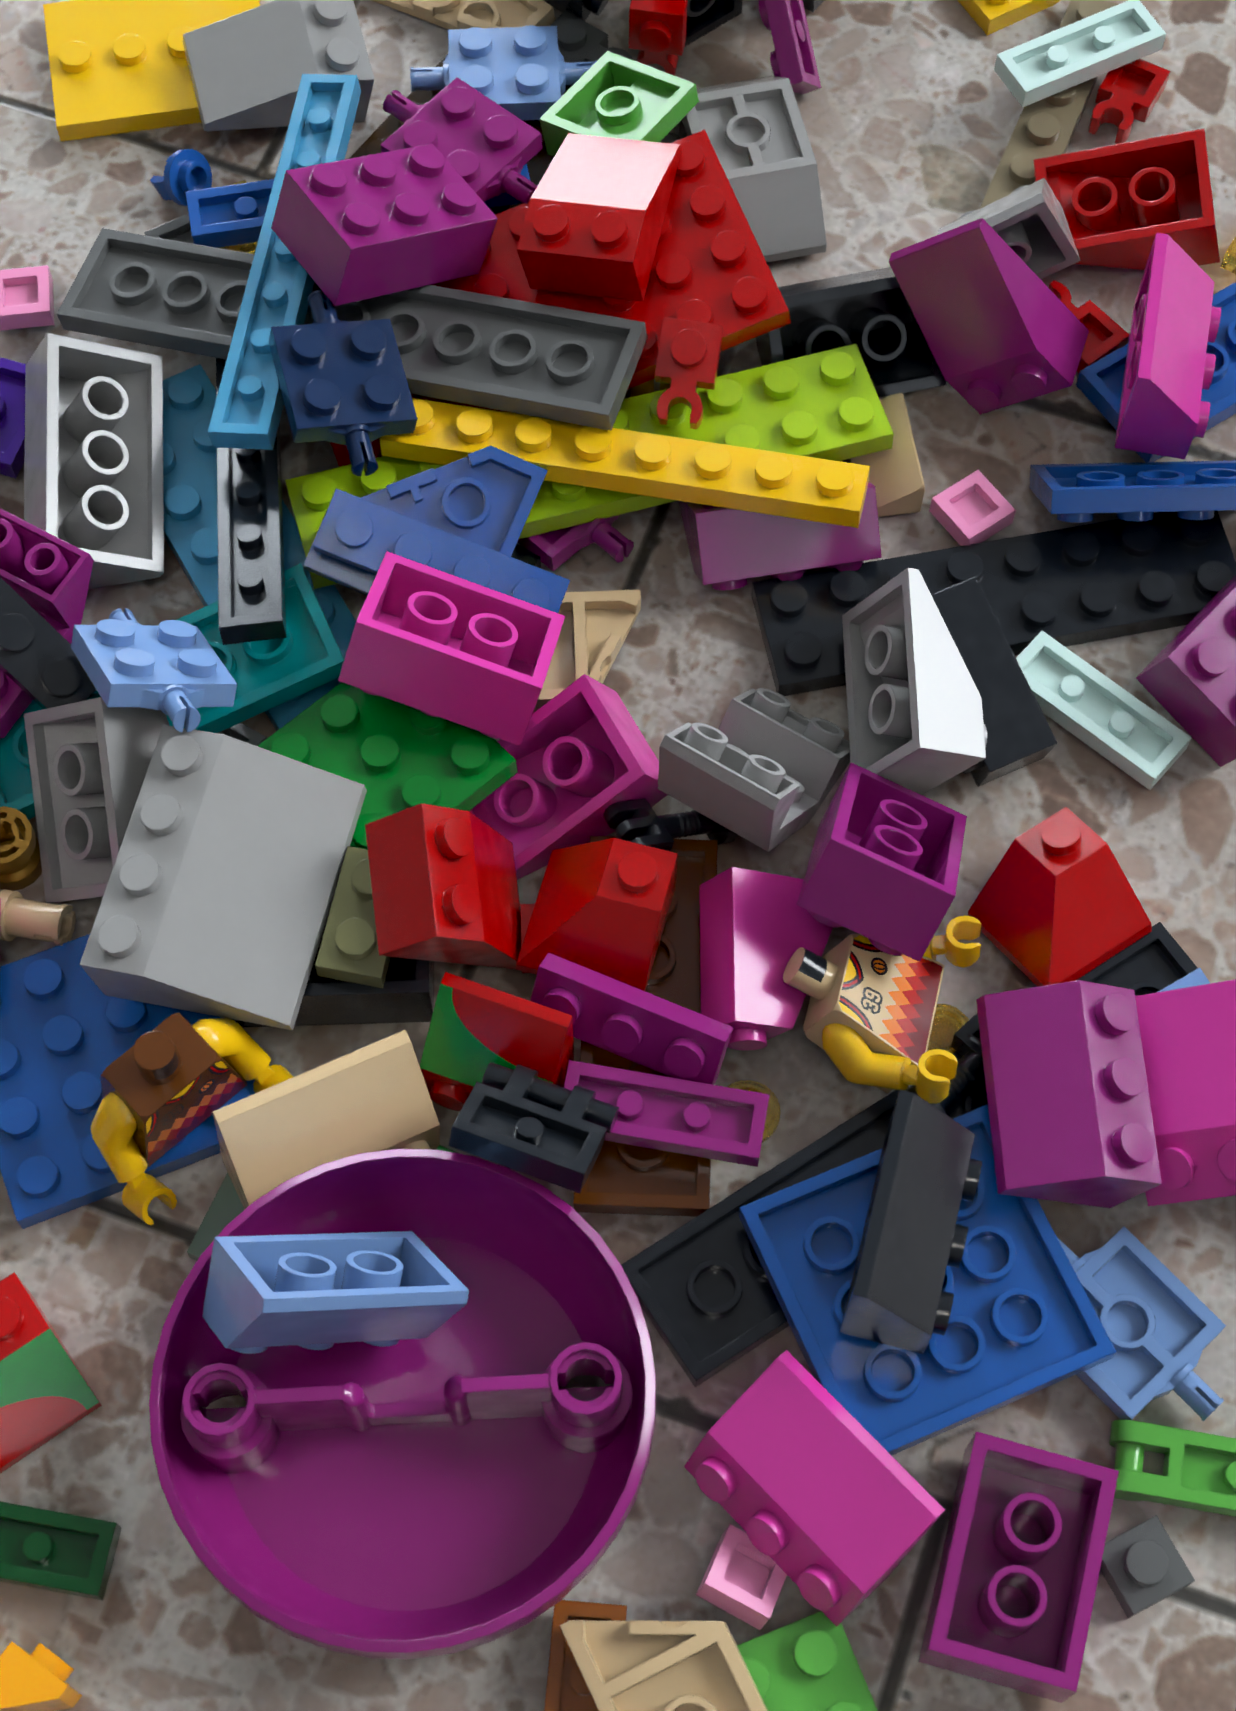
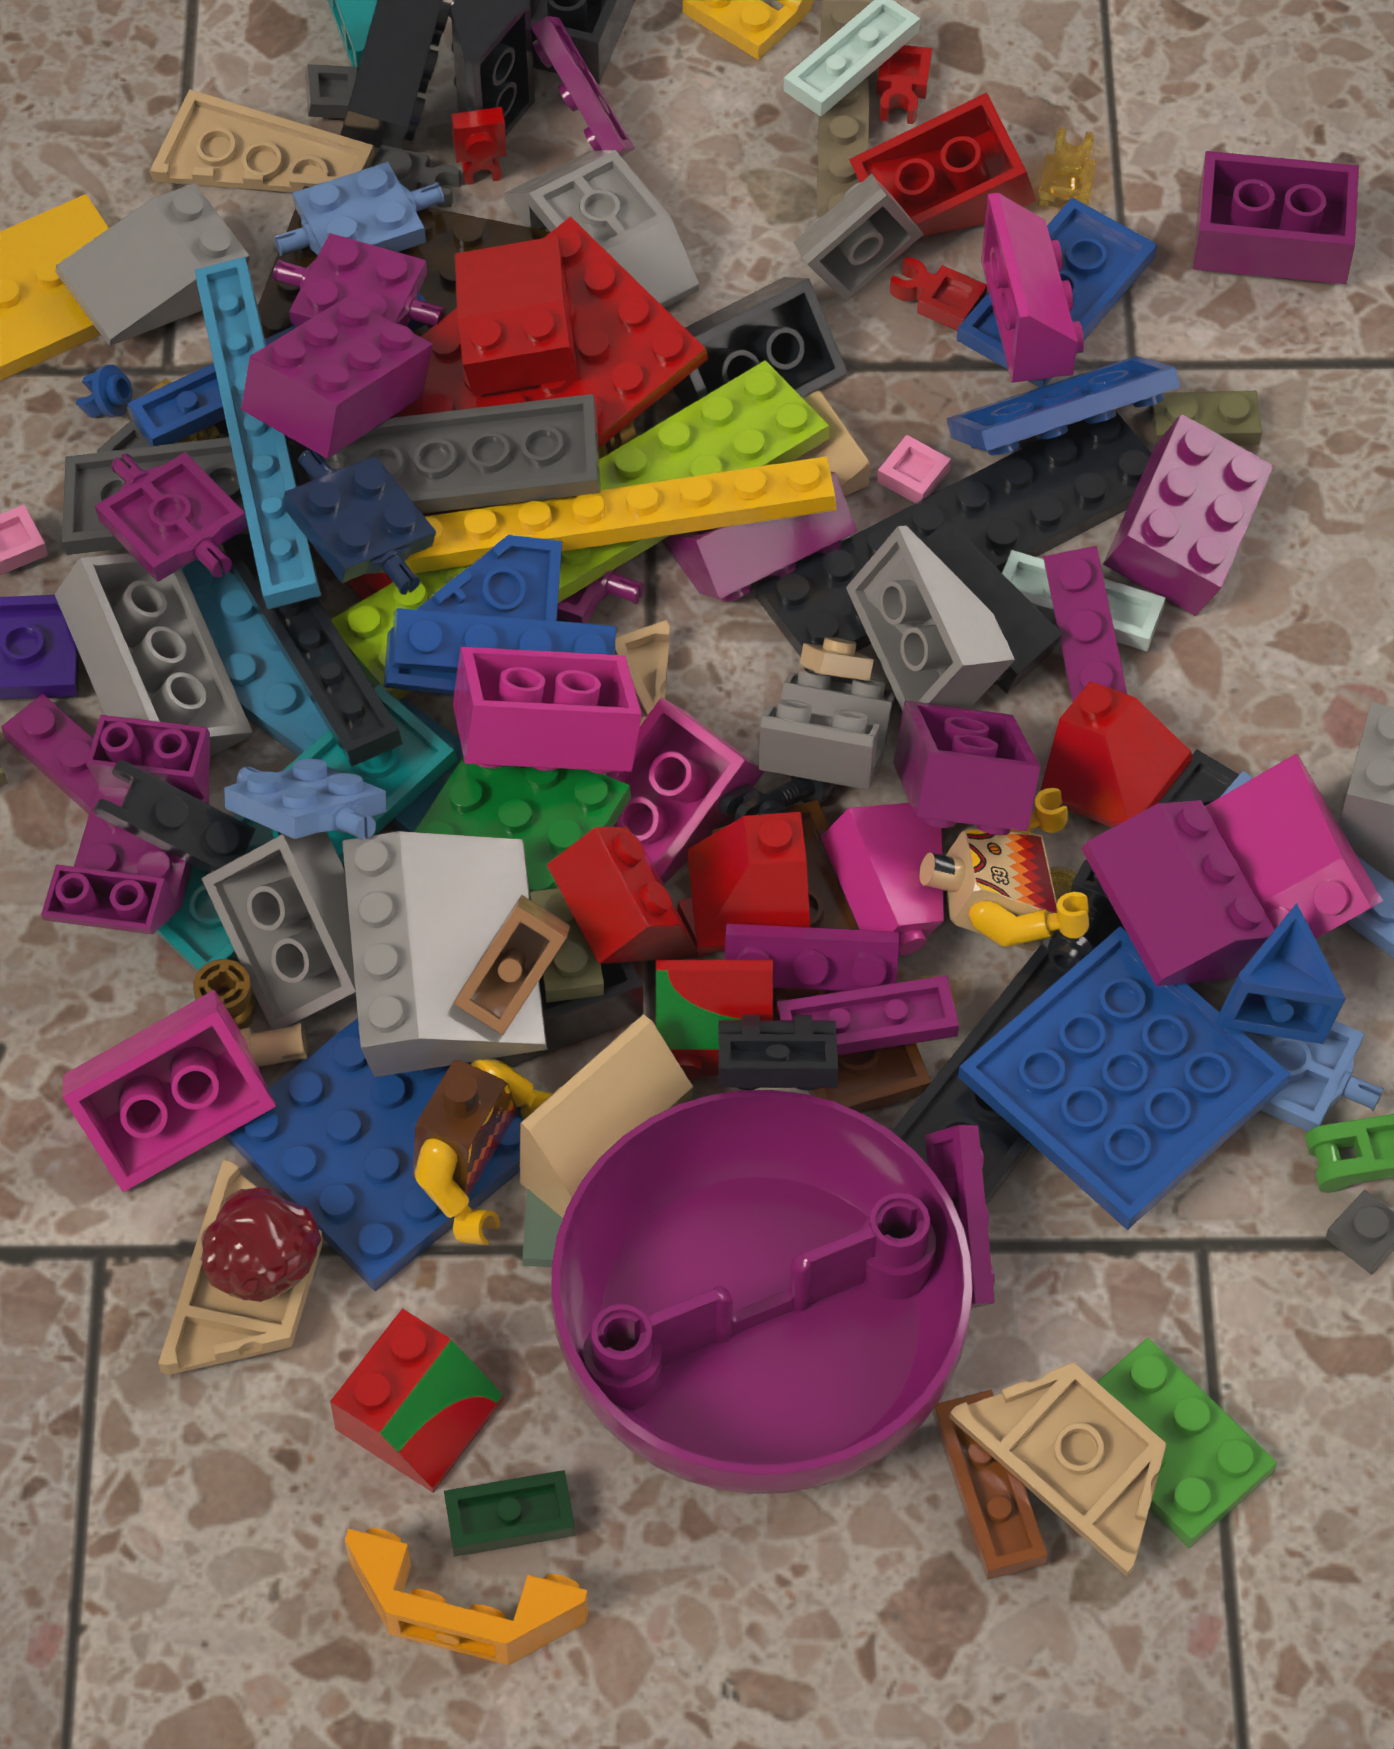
camera: 20 degrees left, 5 degrees down
(161, 319) = (171, 516): none -> magenta plate
(280, 925) = (512, 964): none -> medium nougat slope
(327, 1290) = (670, 1228): medium blue slope -> none
(619, 101) = (477, 215): bright green plate -> none
(680, 1349) = (958, 1163): none -> magenta plate
(687, 361) = (639, 416): red plate -> none
(742, 1579) = (1072, 1337): bright pink plate -> none
(802, 691) = (837, 658): none -> tan plate
(812, 1488) = (1100, 1249): dark pink slope -> none
(912, 1228) = (1101, 1029): black slope -> none
(988, 317) = (872, 306): magenta slope -> none
(1019, 1567) = (1277, 1256): magenta brick -> none
(1089, 737) = (1084, 619): none -> magenta plate
(1148, 1247) = (1285, 987): none -> blue slope

